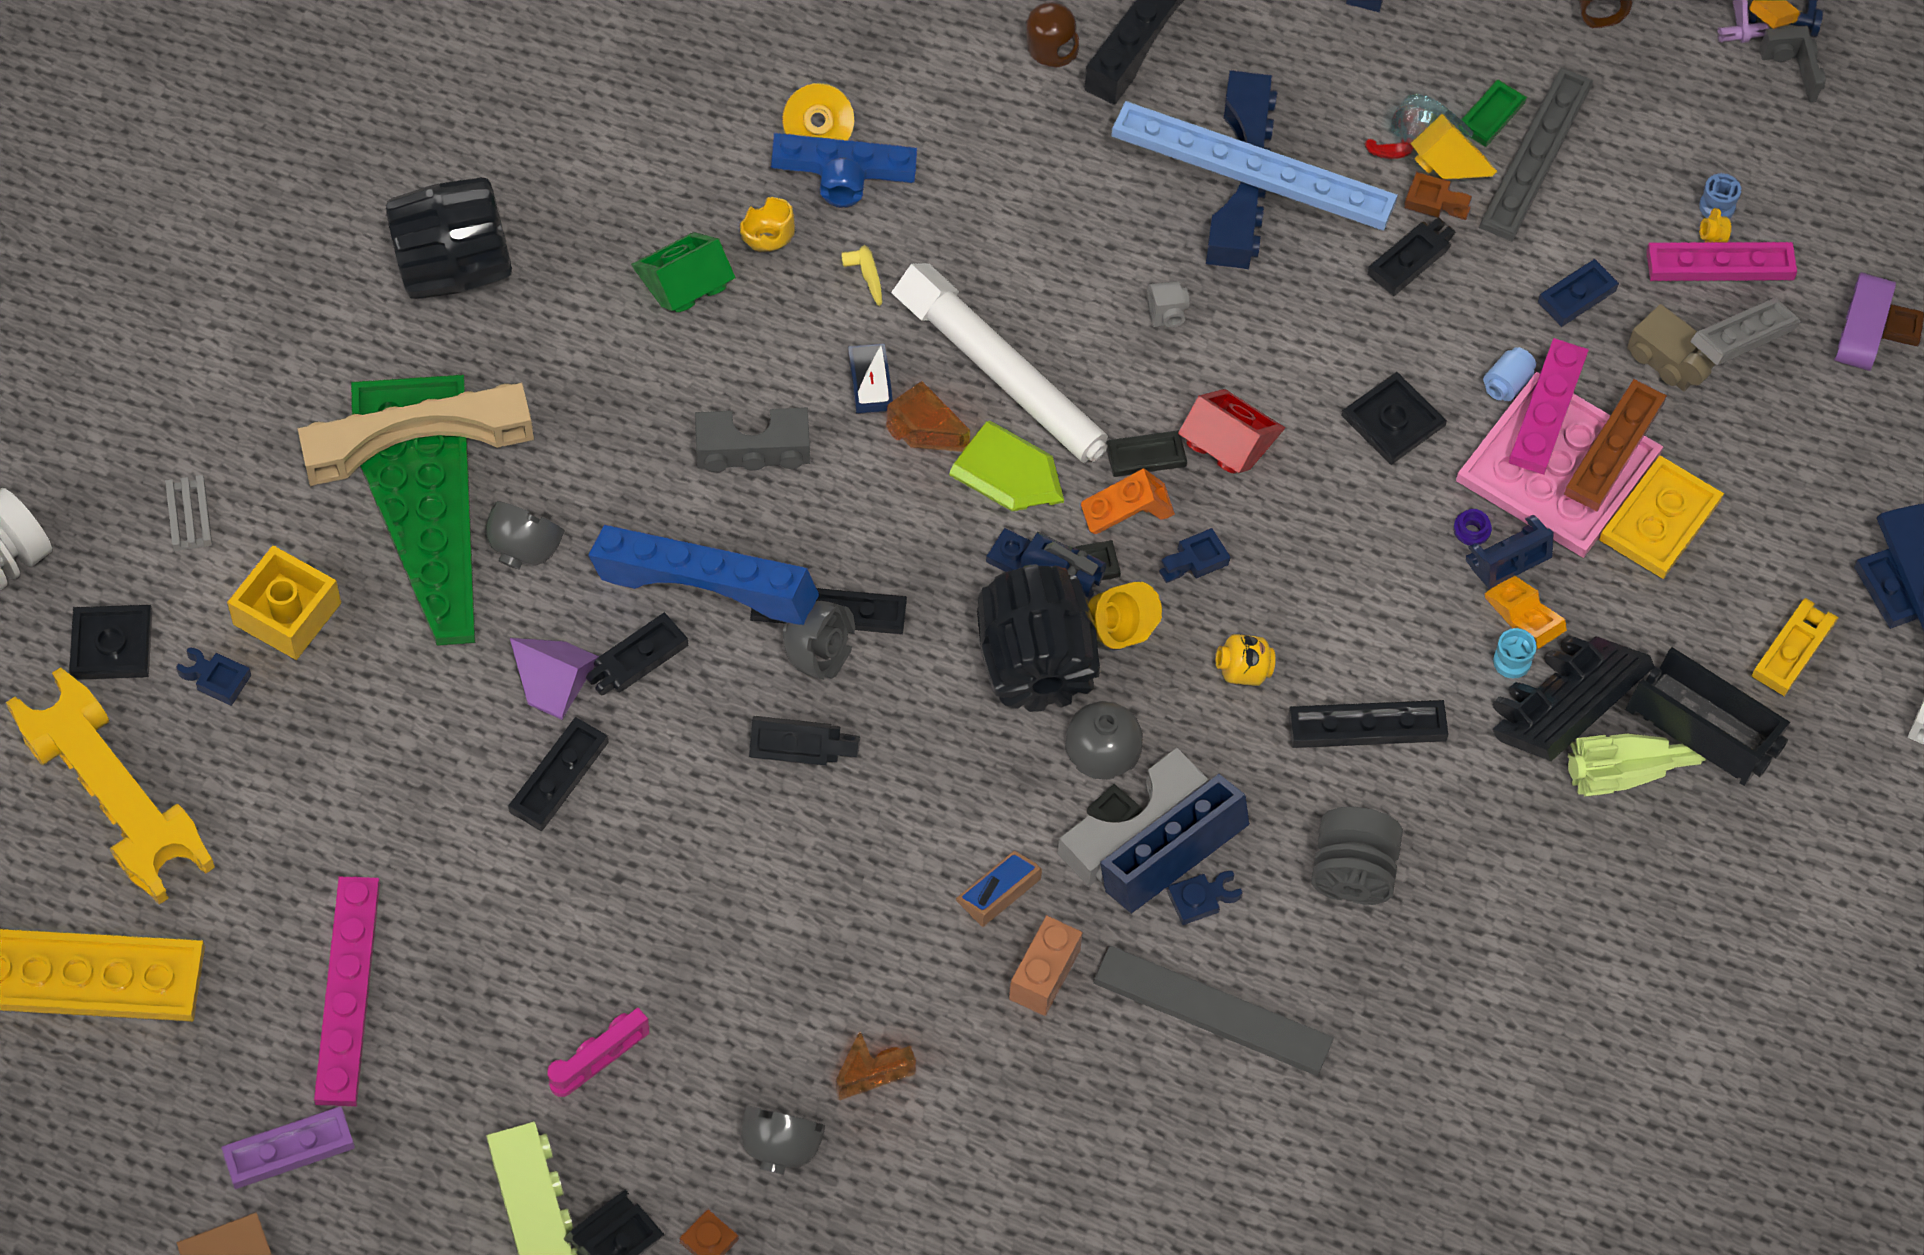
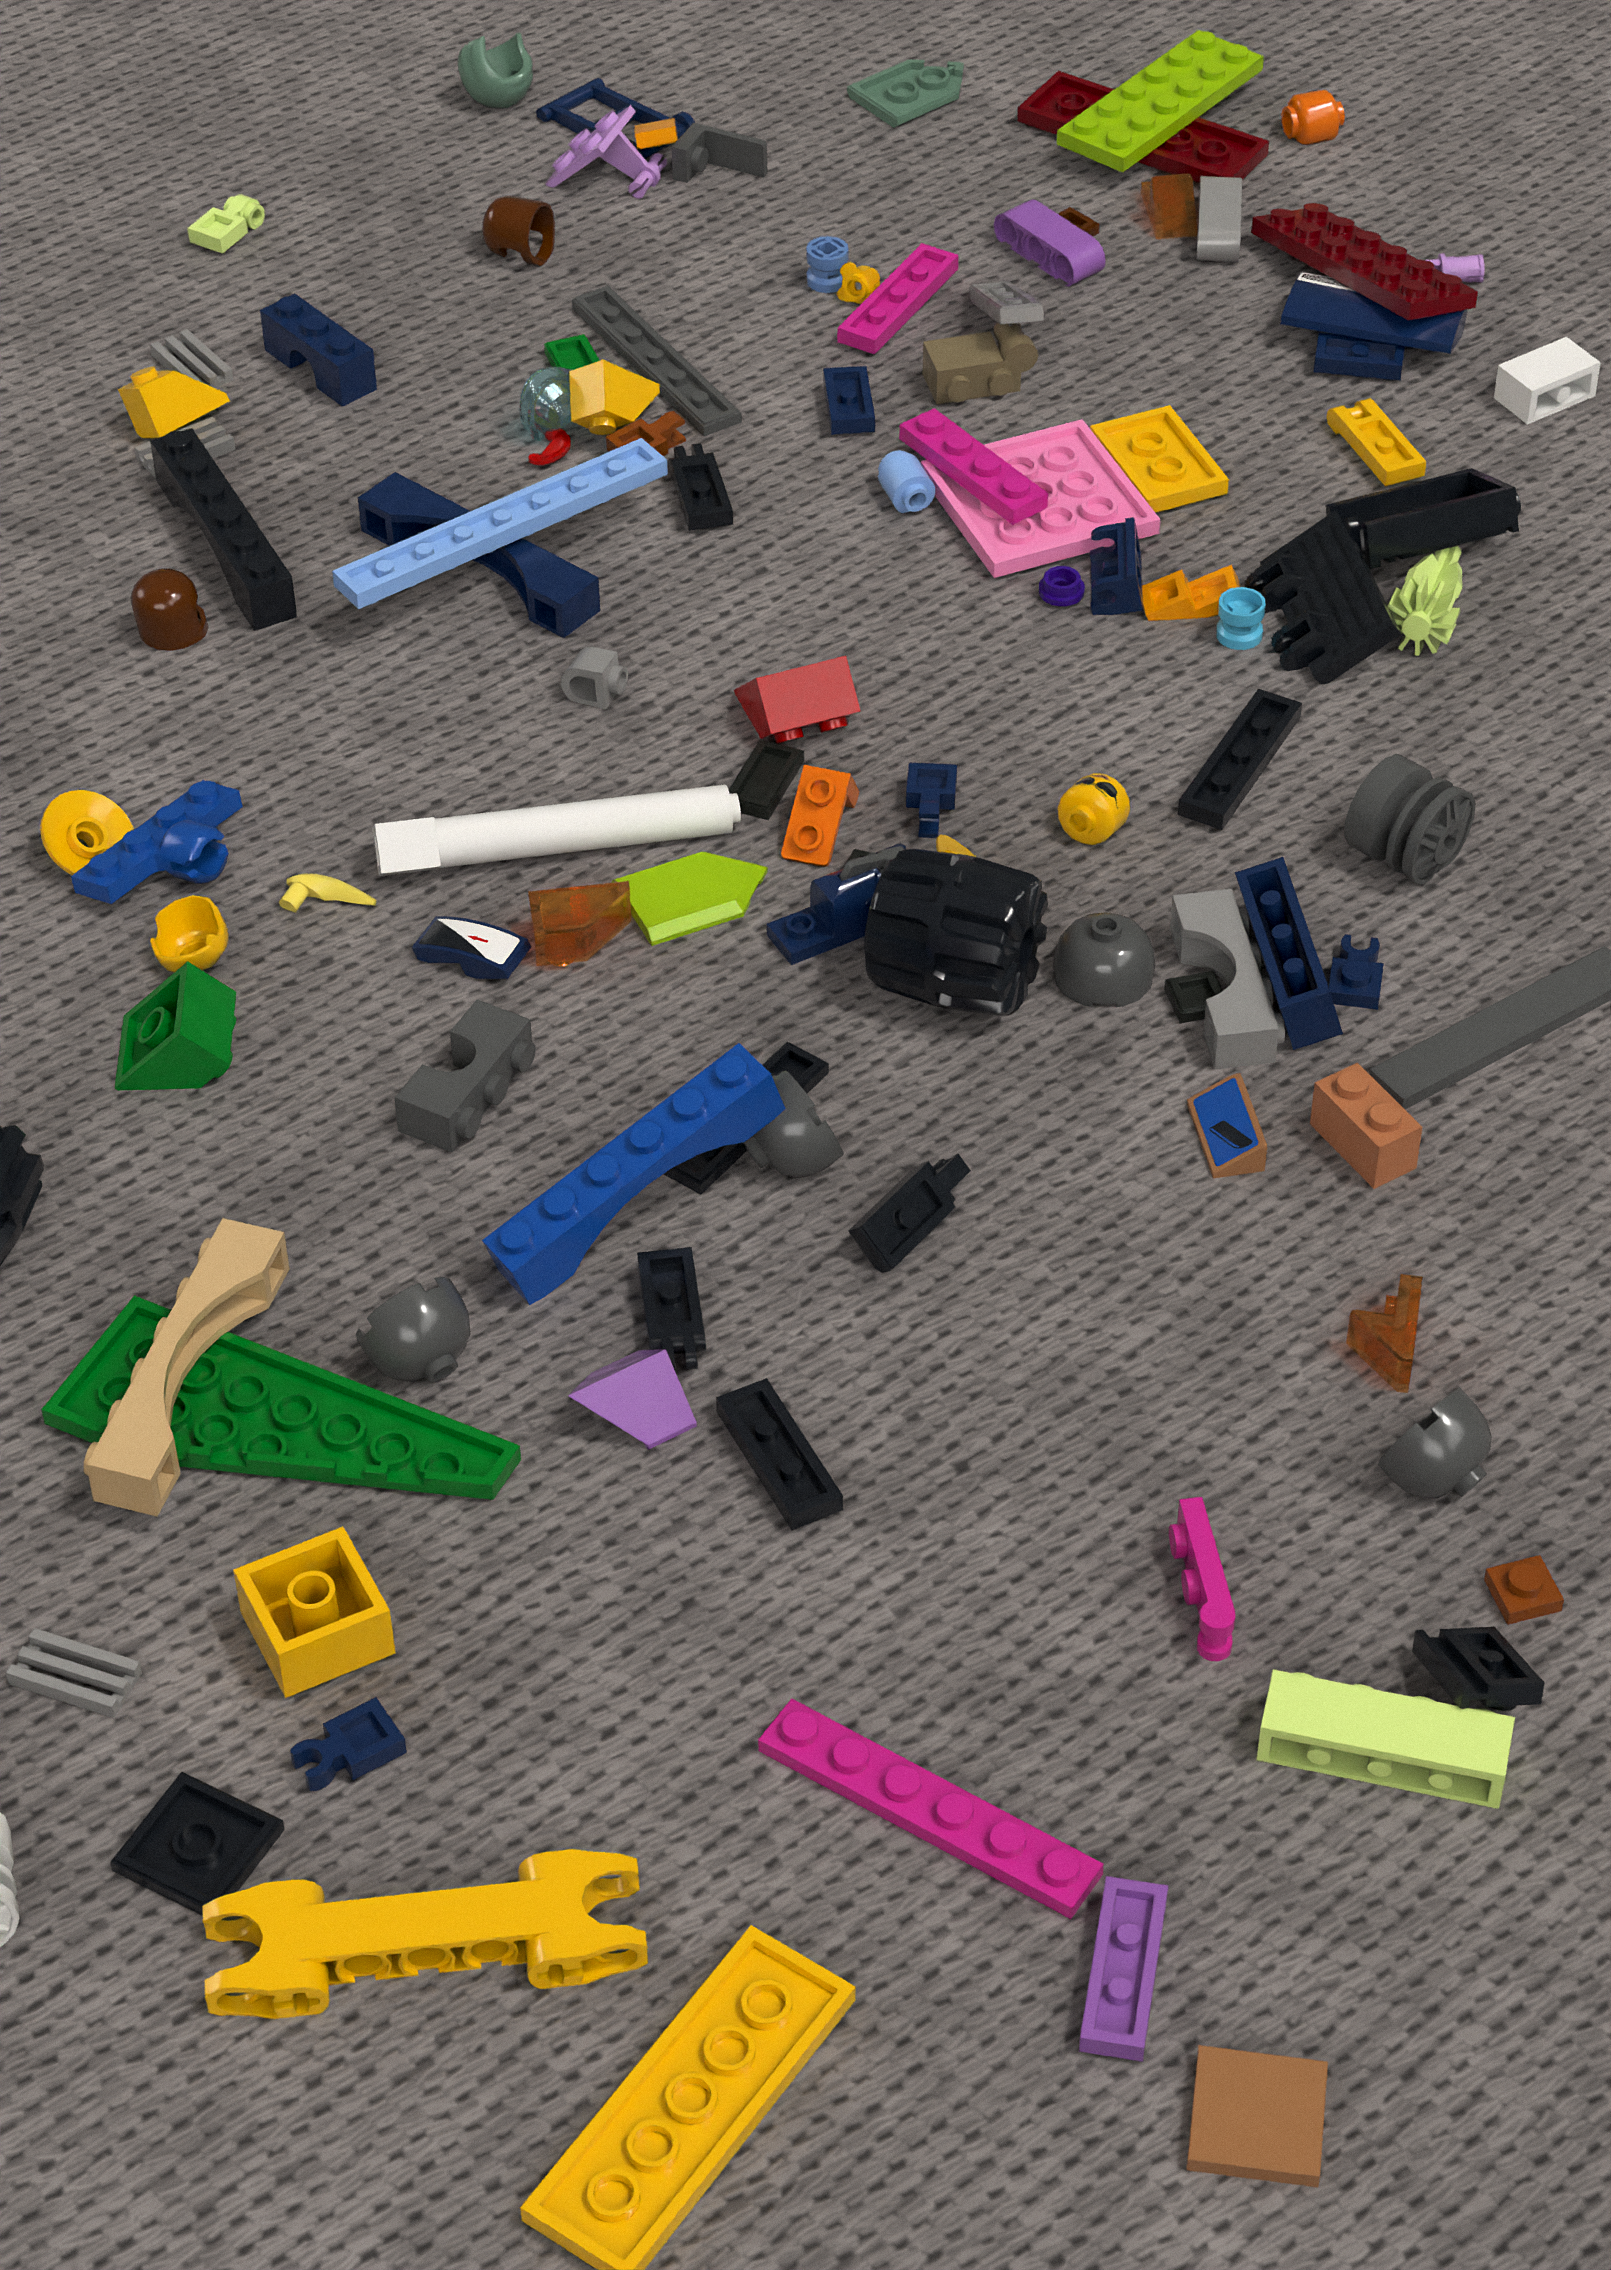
camera: 55 degrees left, 15 degrees down
(1394, 418) = (880, 586): black tile -> none
(1615, 445) = (1062, 439): dark orange plate -> none

